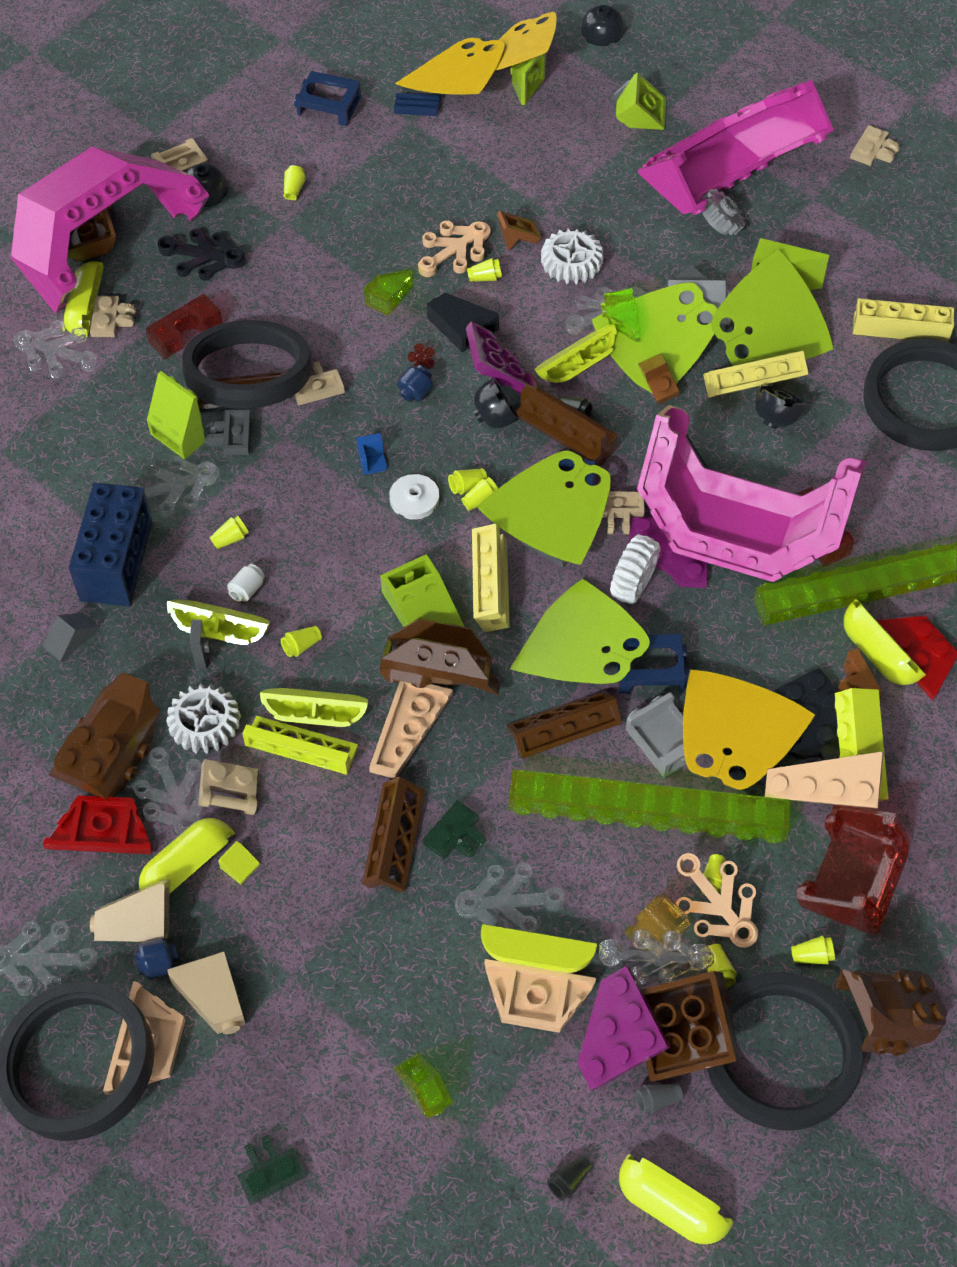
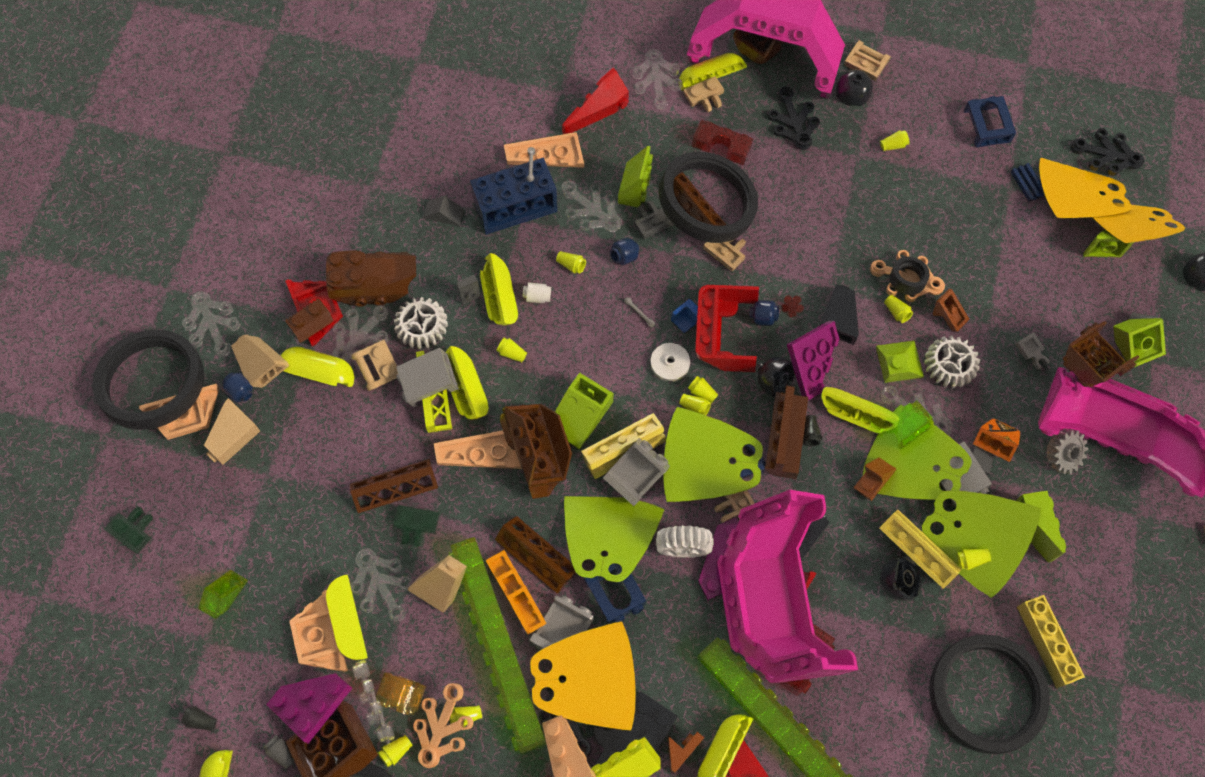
camera: 60 degrees right, 10 degrees up
(51, 411) = (604, 101): none -> red wedge
(68, 496) = (557, 151): none -> light nougat wing
(78, 489) = (531, 151): none -> light grey hinge
(124, 831) = (309, 320): none -> reddish brown brick
(238, 862) = (329, 400): neon yellow slope -> none
(253, 475) = (624, 251): none -> dark blue head
(283, 735) = (426, 376): none -> light grey panel
(314, 502) = (628, 301): none -> light grey hinge
(382, 418) = (713, 304): none -> red windscreen
(388, 290) = (837, 253): clear neon green slope -> none
(449, 17) = (1109, 152): none -> black plant
(462, 251) = (915, 265): none -> black tyre
(528, 574) = (636, 471): none -> light grey panel
(542, 300) = (899, 361): none -> lime slope
(548, 826) = (440, 583): none -> tan slope
(597, 190) = (1031, 348): none -> light grey plate
(604, 762) = (516, 592): none -> light orange slope
(652, 139) = (1094, 358): none -> reddish brown slope
(679, 257) = (998, 439): none -> orange torso
(790, 336) = (973, 558): none -> neon yellow cone

